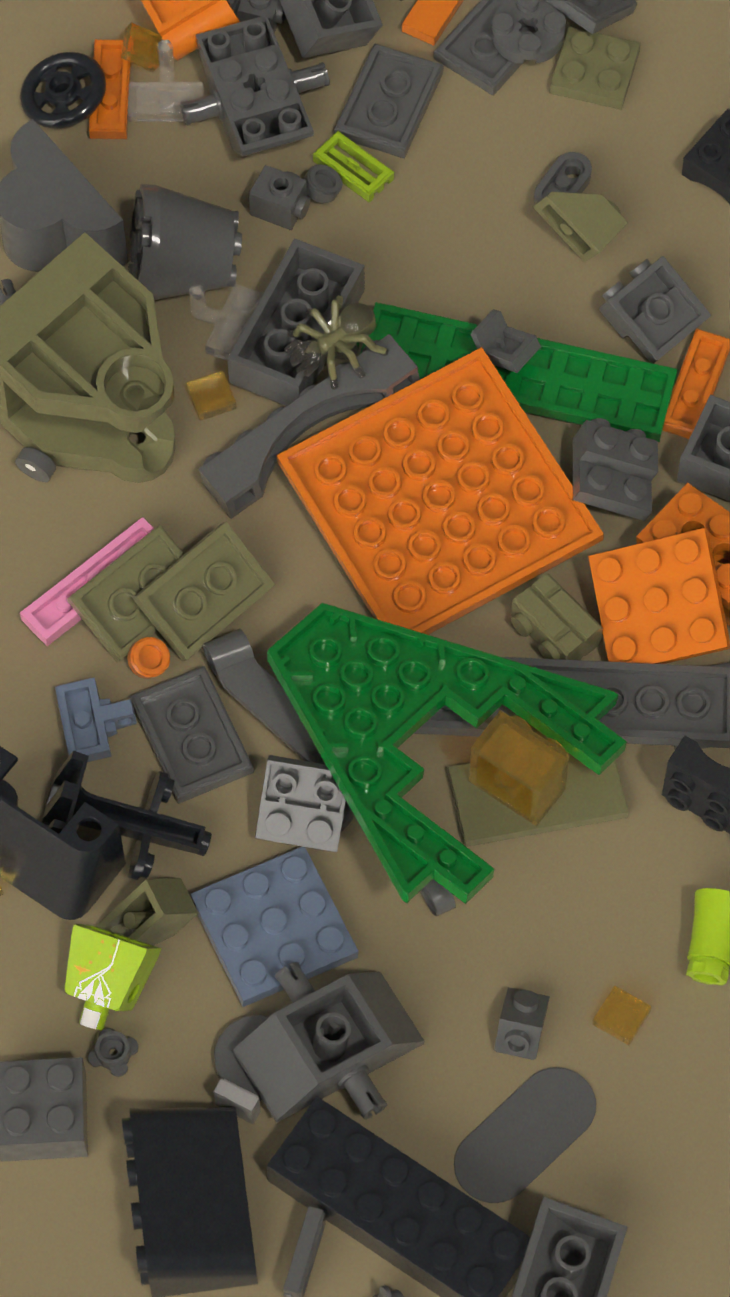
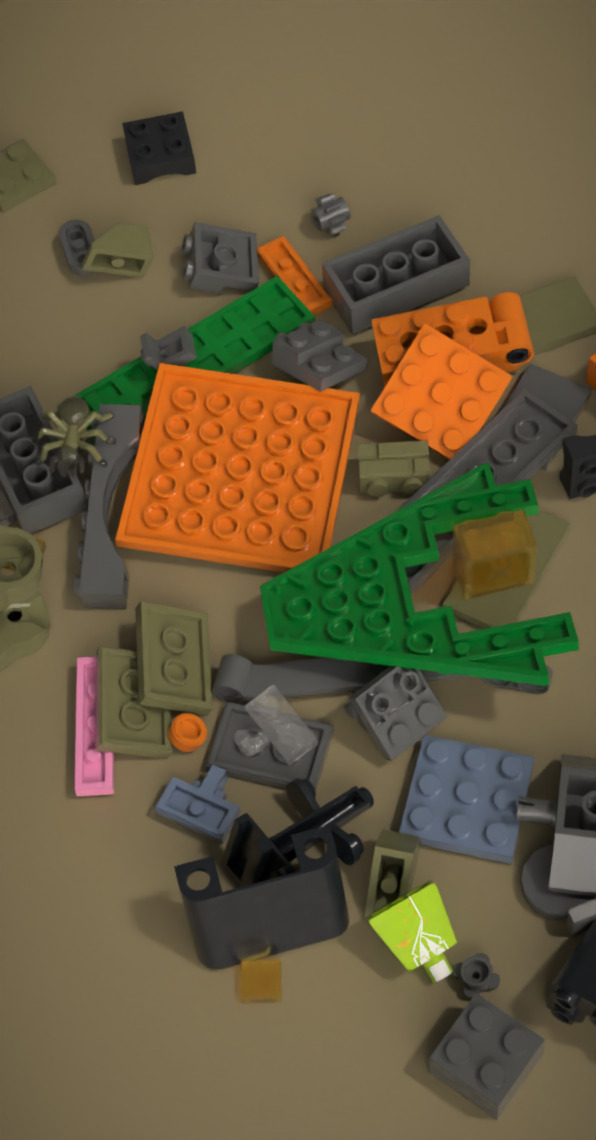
camera: 45 degrees left, 5 degrees down
(208, 725) = (278, 725): none -> clear plate

